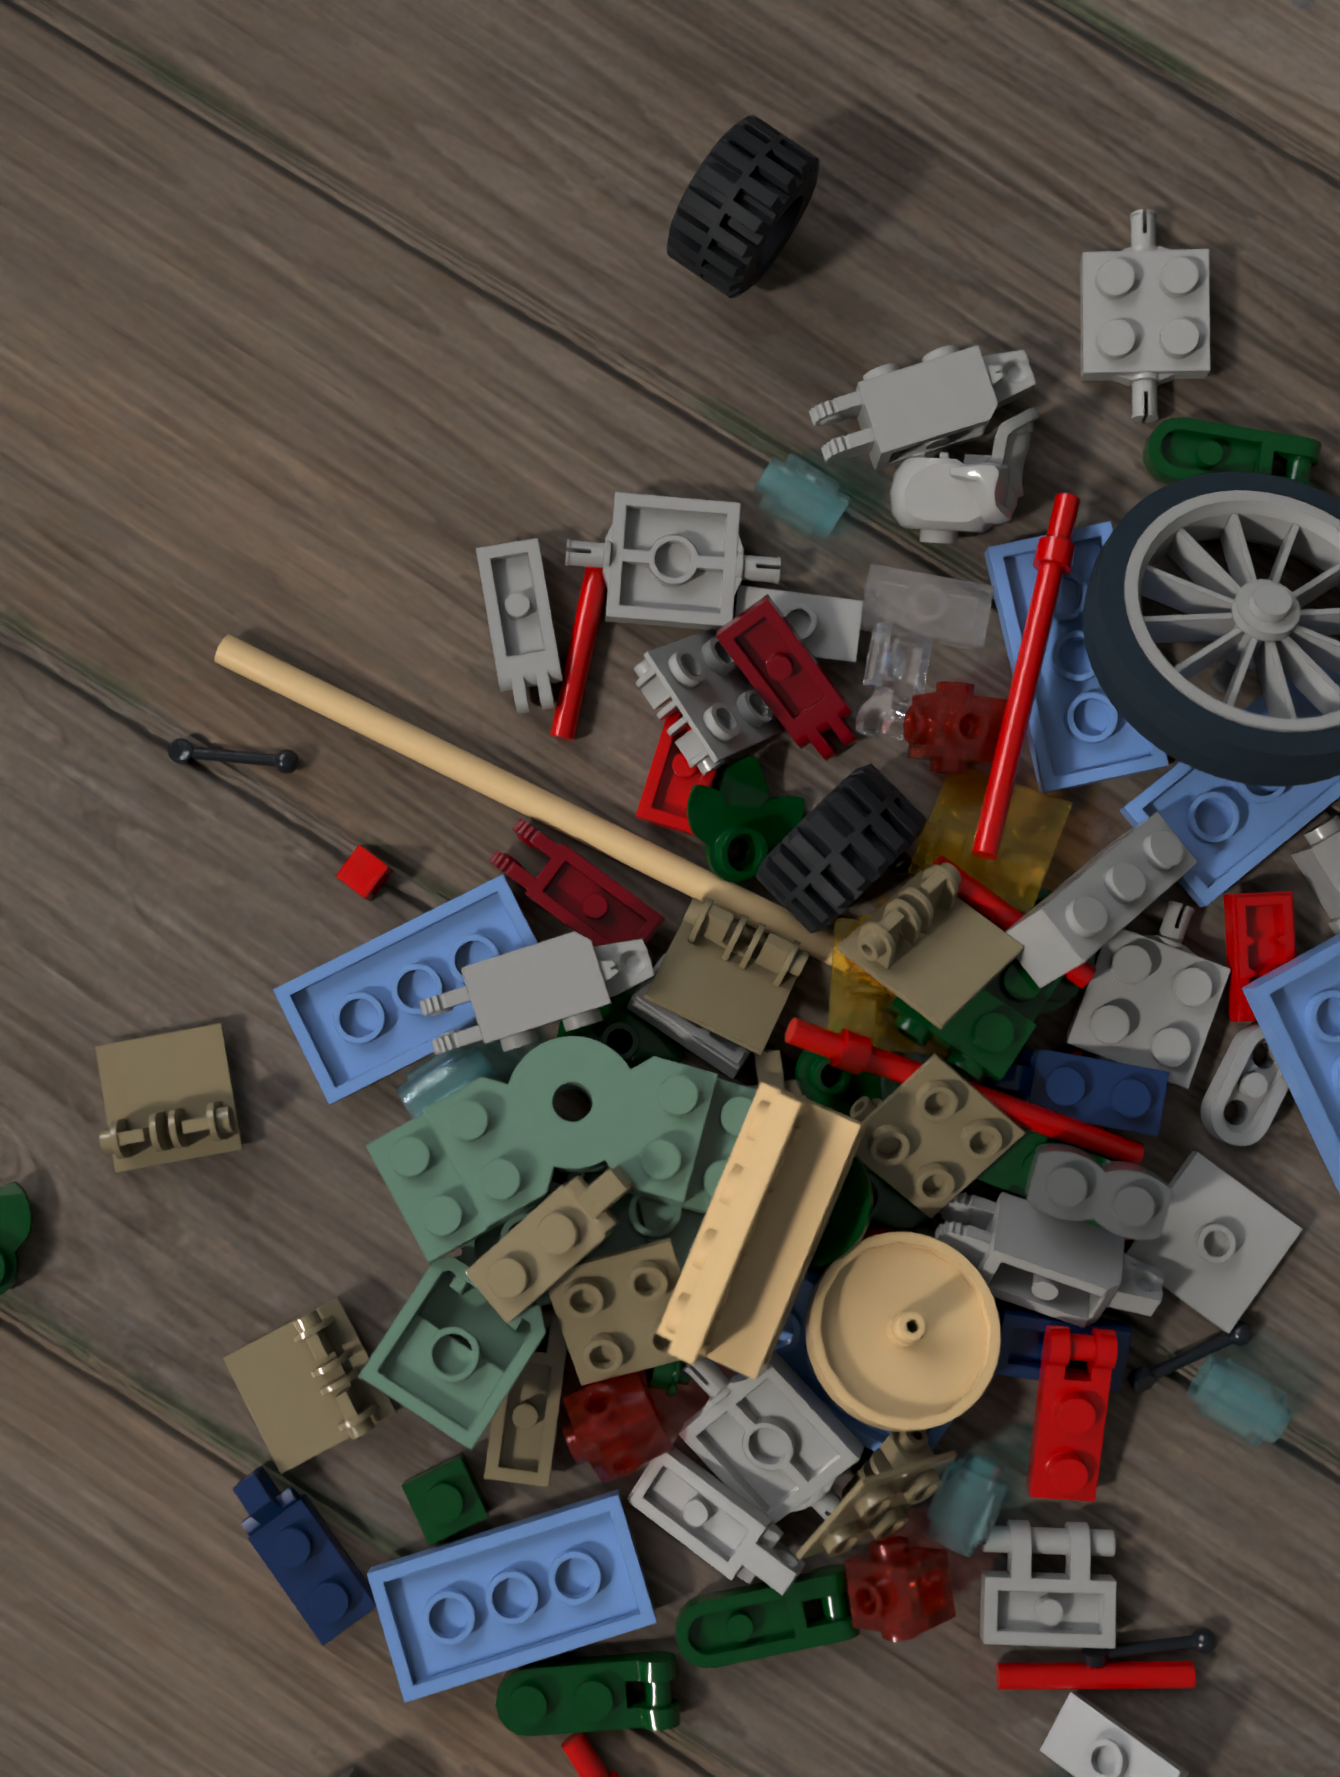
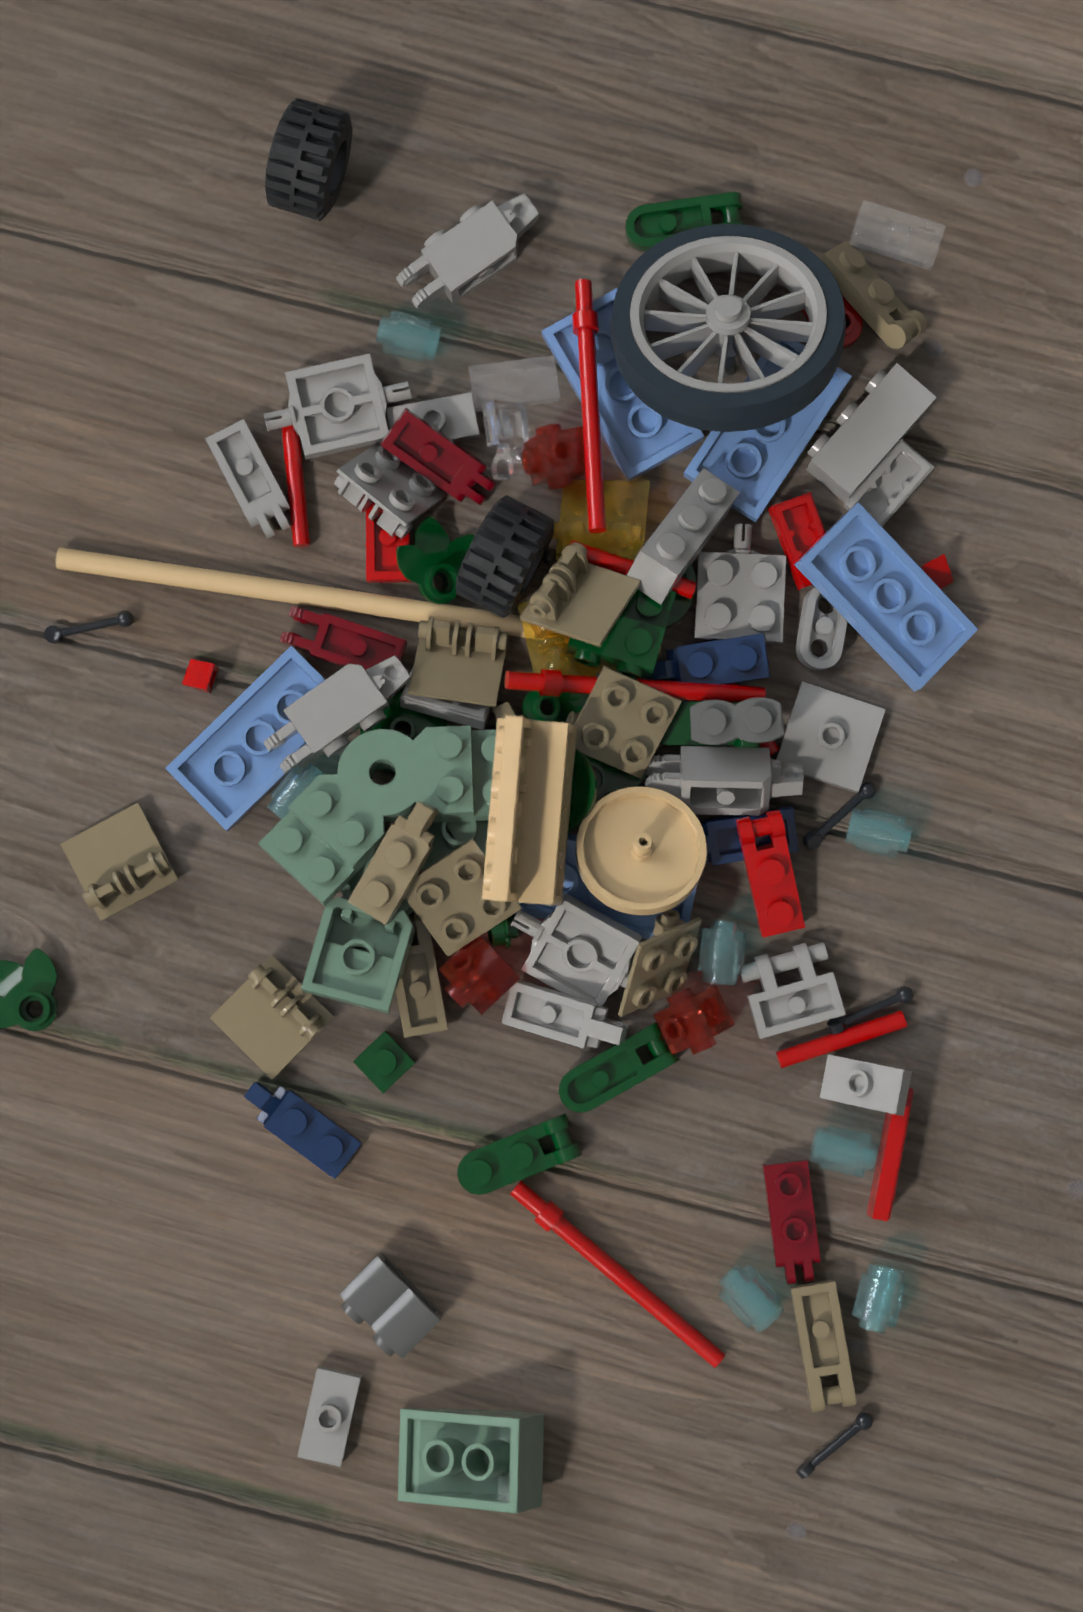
camera: 10 degrees left, 0 degrees up
(511, 1595) = (446, 1107): medium blue plate -> none
(970, 496) = (506, 306): light grey head -> none
(1144, 315) = (598, 144): light grey plate -> none

